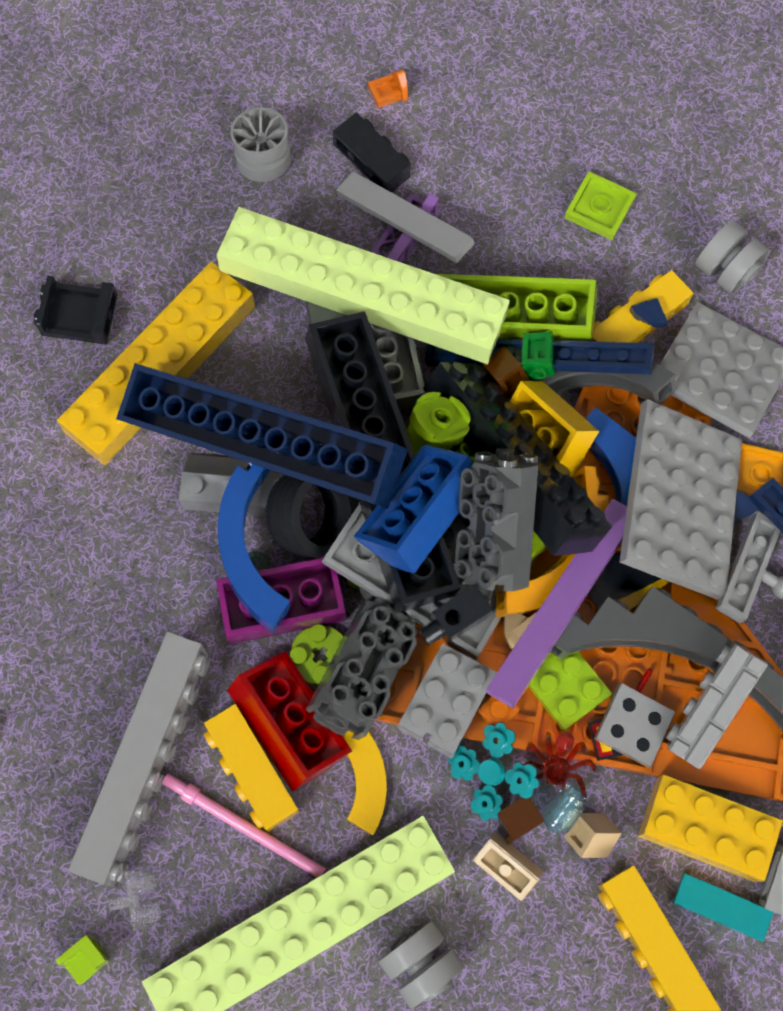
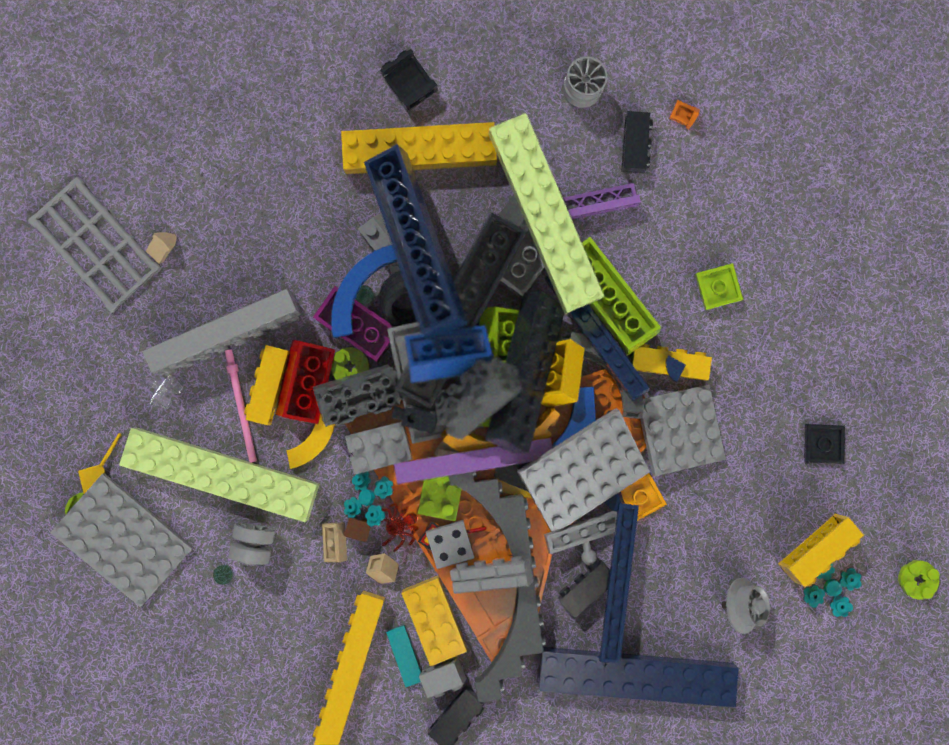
camera: 50 degrees right, 15 degrees up
(83, 959) = (120, 392): lime panel -> none
(405, 217) = (612, 195): light grey tile -> none
(436, 432) = (496, 320): lime plate -> none
(505, 371) = (571, 325): reddish brown panel -> none
(538, 355) = (593, 334): green bracket -> none
(564, 810) = (379, 546): clear light blue brick -> none
(738, 263) = (749, 388): light grey wheel -> none

